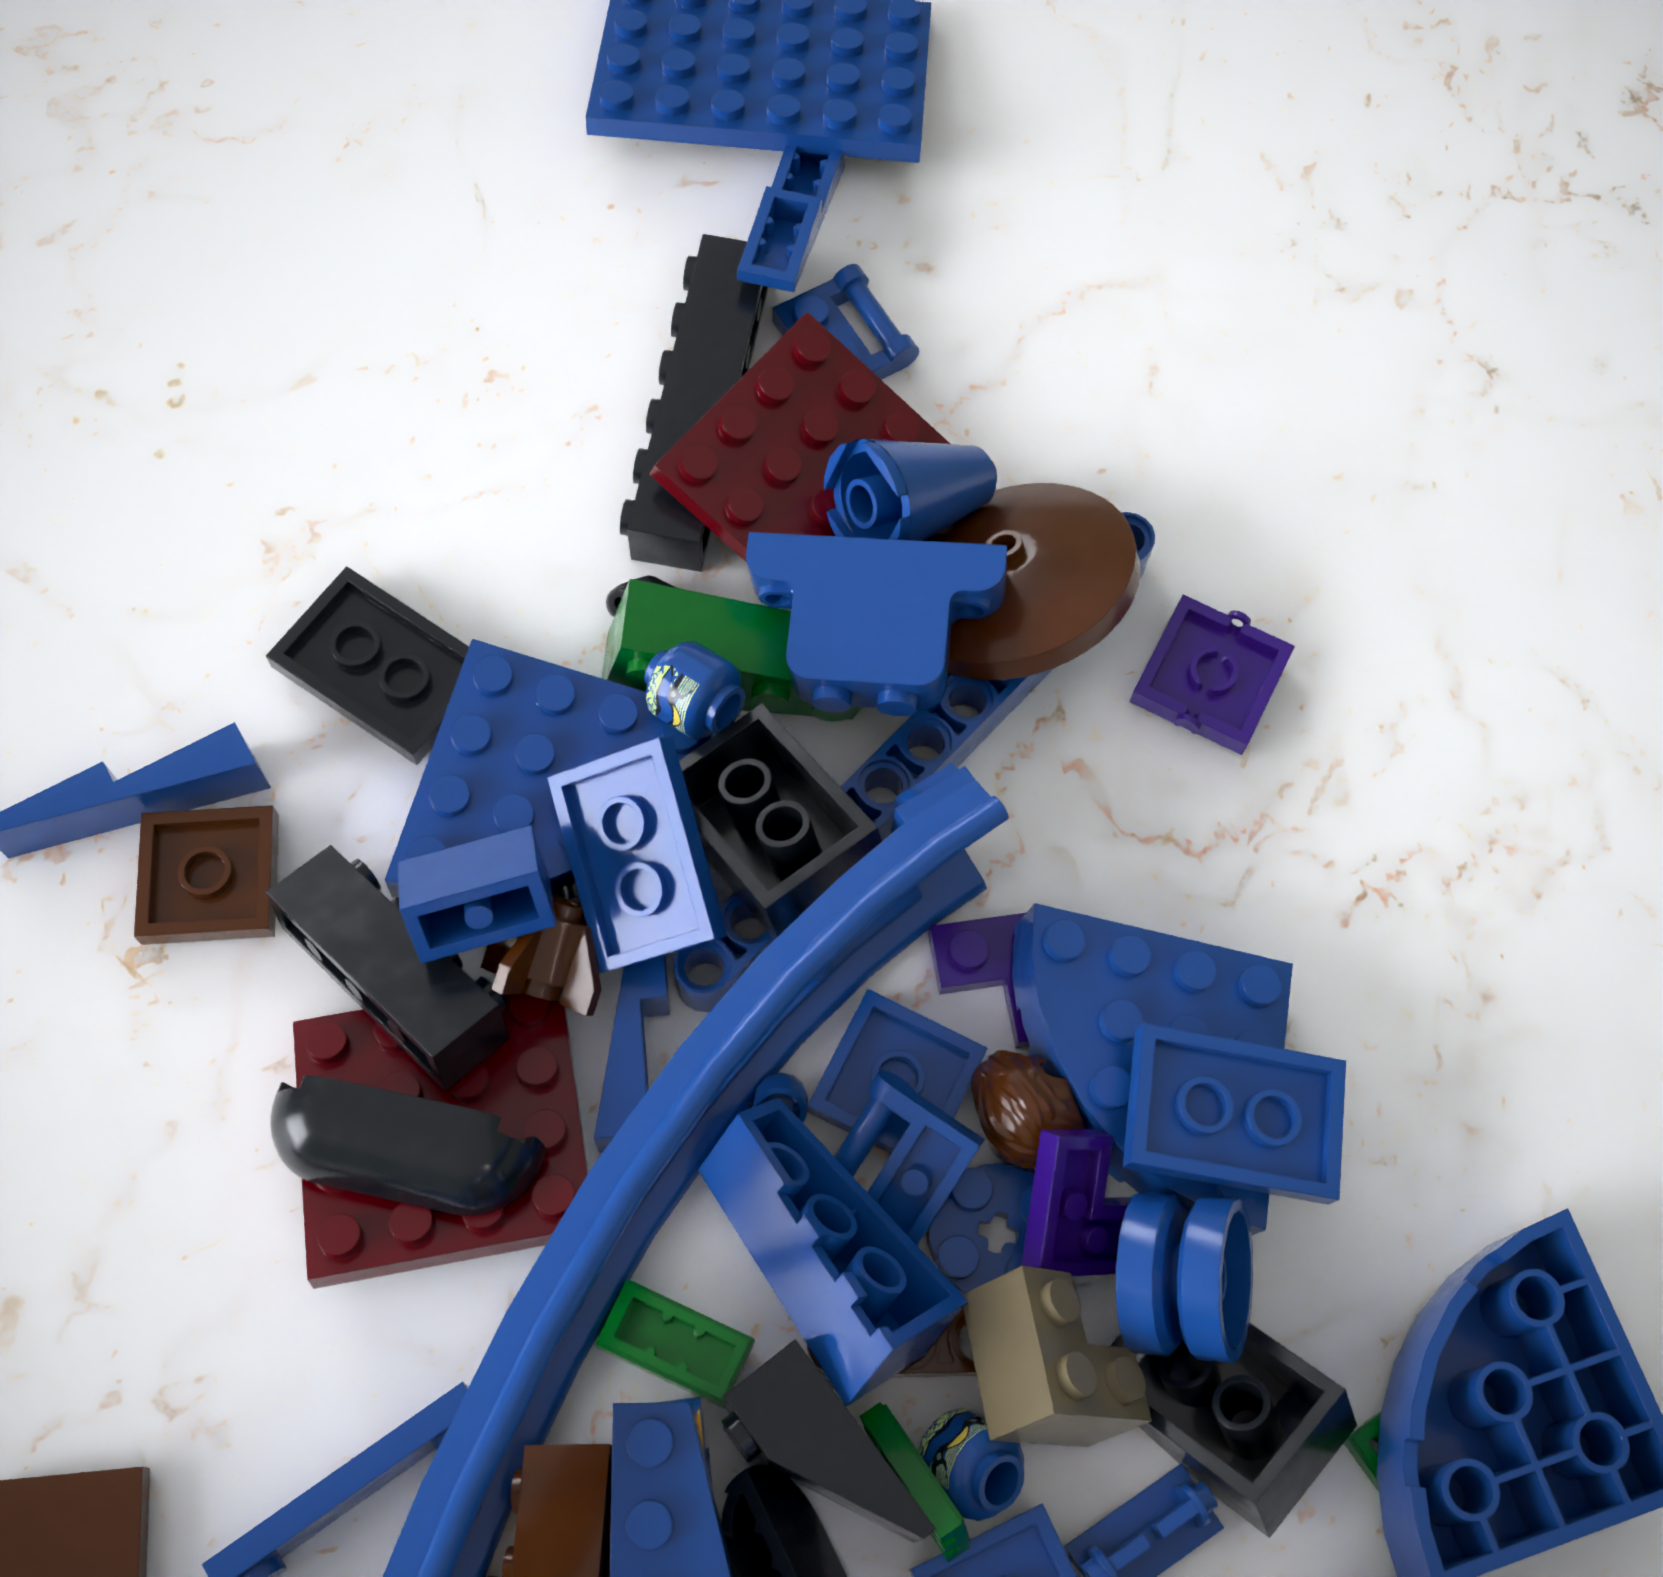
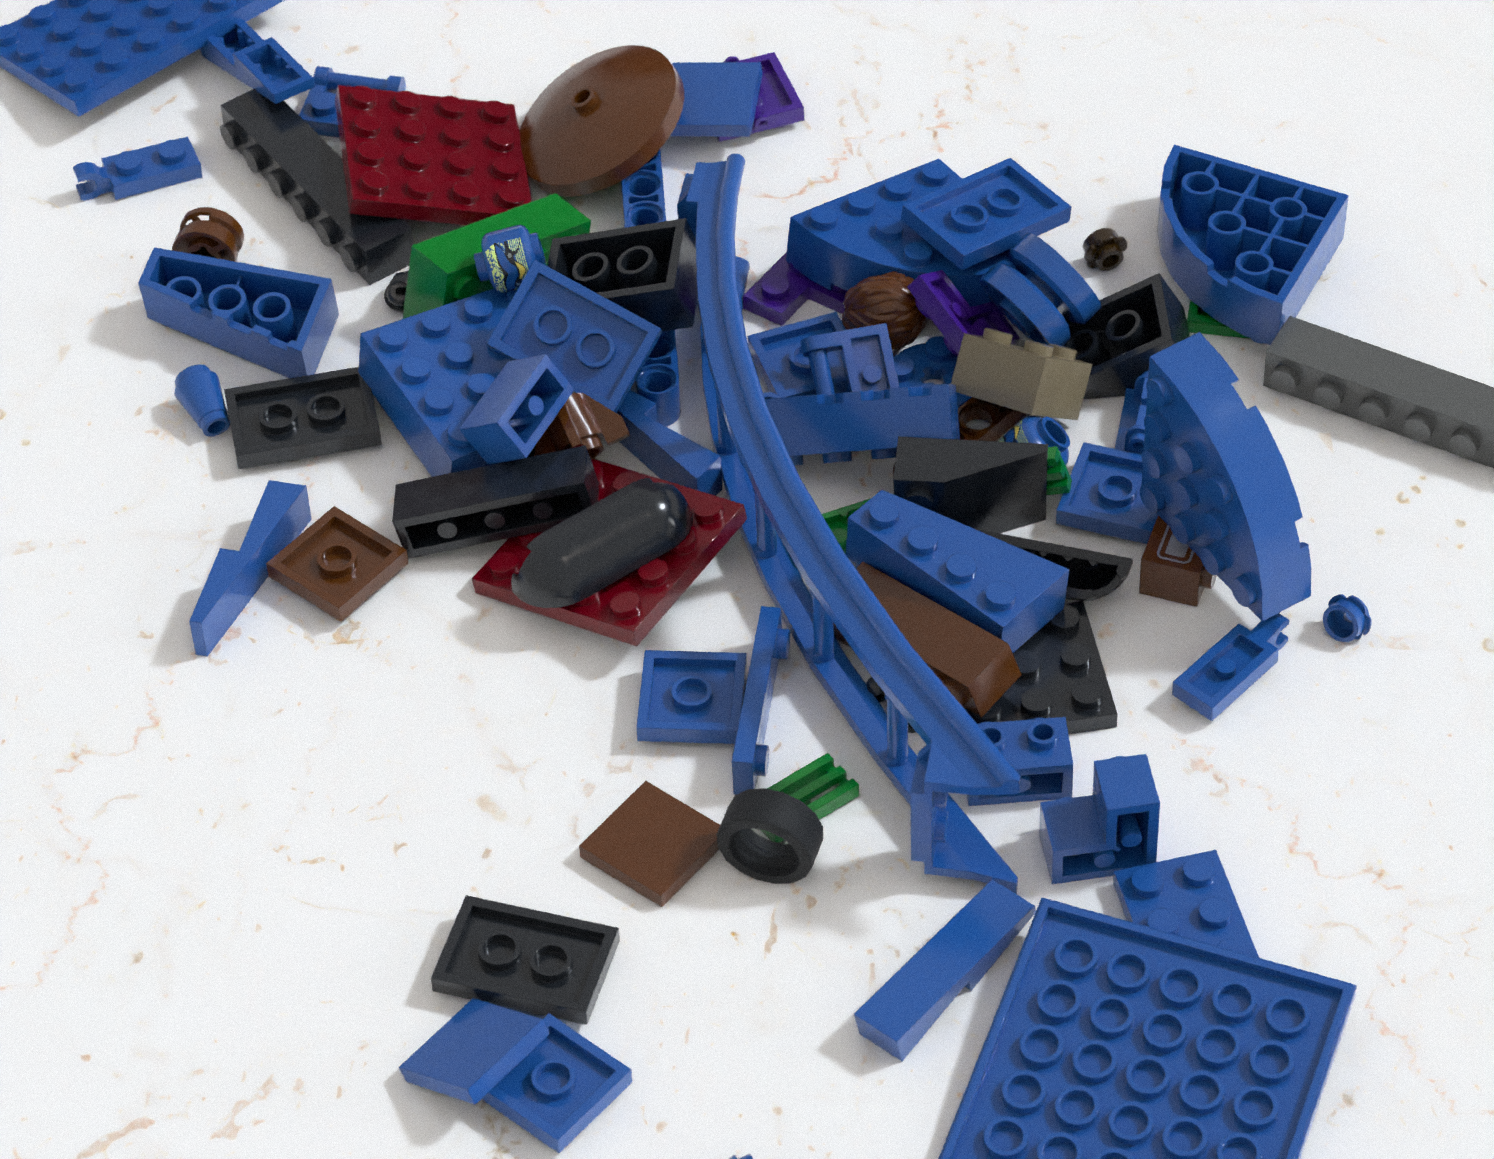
camera: 40 degrees left, 20 degrees down
(303, 1404) = (691, 696): none -> blue plate
(324, 552) = (202, 398): none -> blue cone
(463, 511) = (242, 308): none -> blue wedge
(523, 382) = (216, 238): none -> reddish brown wheel
(585, 240) = (139, 170): none -> blue plate
(873, 613) = (555, 168): blue brick -> none
(905, 487) = (496, 122): blue cone -> none
(1164, 654) = (718, 98): none -> blue tile
(1362, 1245) = (1104, 249): none -> dark brown plate

